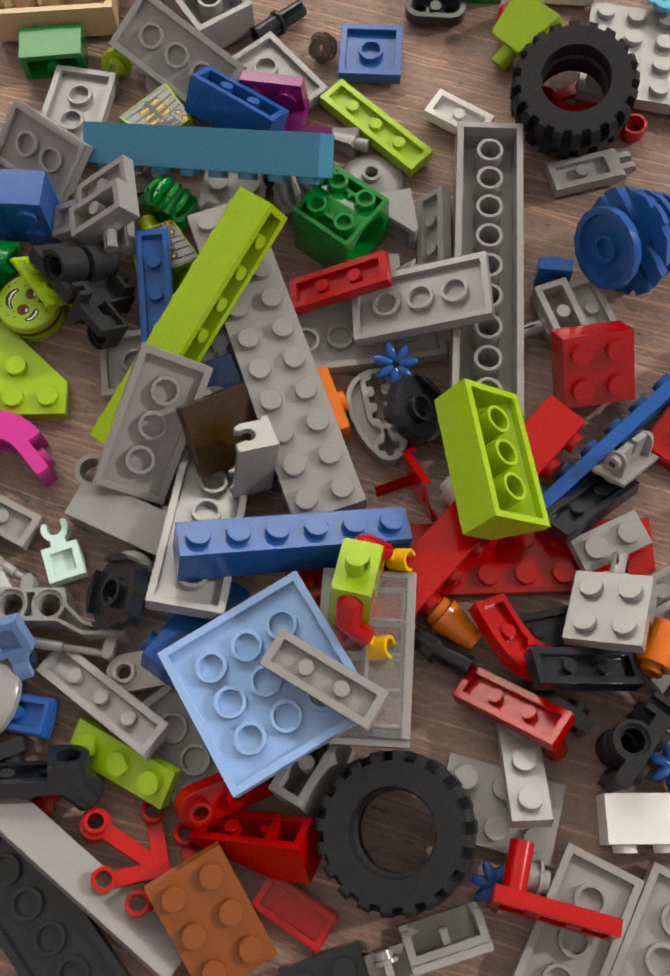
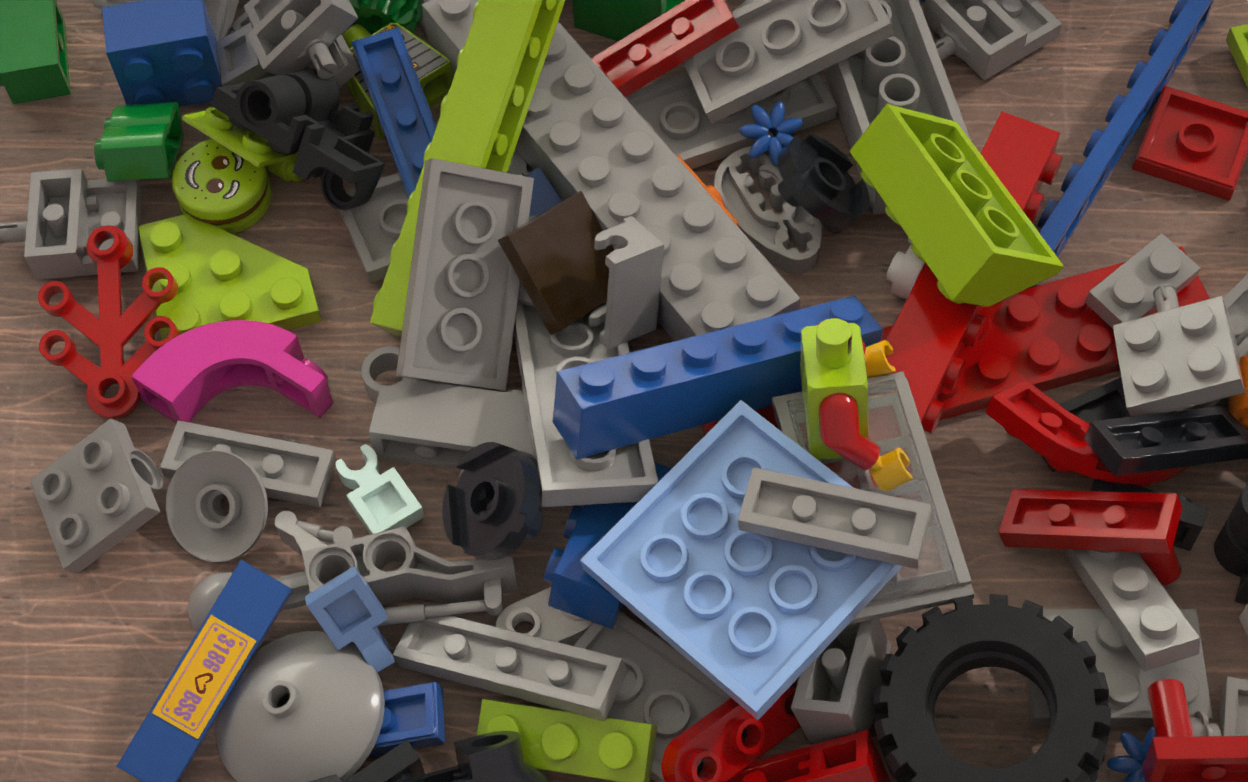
camera: 15 degrees left, 10 degrees down
(415, 479) = (856, 273): red piece -> none
(442, 652) = (974, 486): black axle -> none
(453, 623) = (968, 444): orange cone -> none
(586, 507) = (1099, 243): black plate -> none
(593, 364) = (1042, 65): red brick -> none
(628, 460) = (1129, 176): light grey hinge -> none

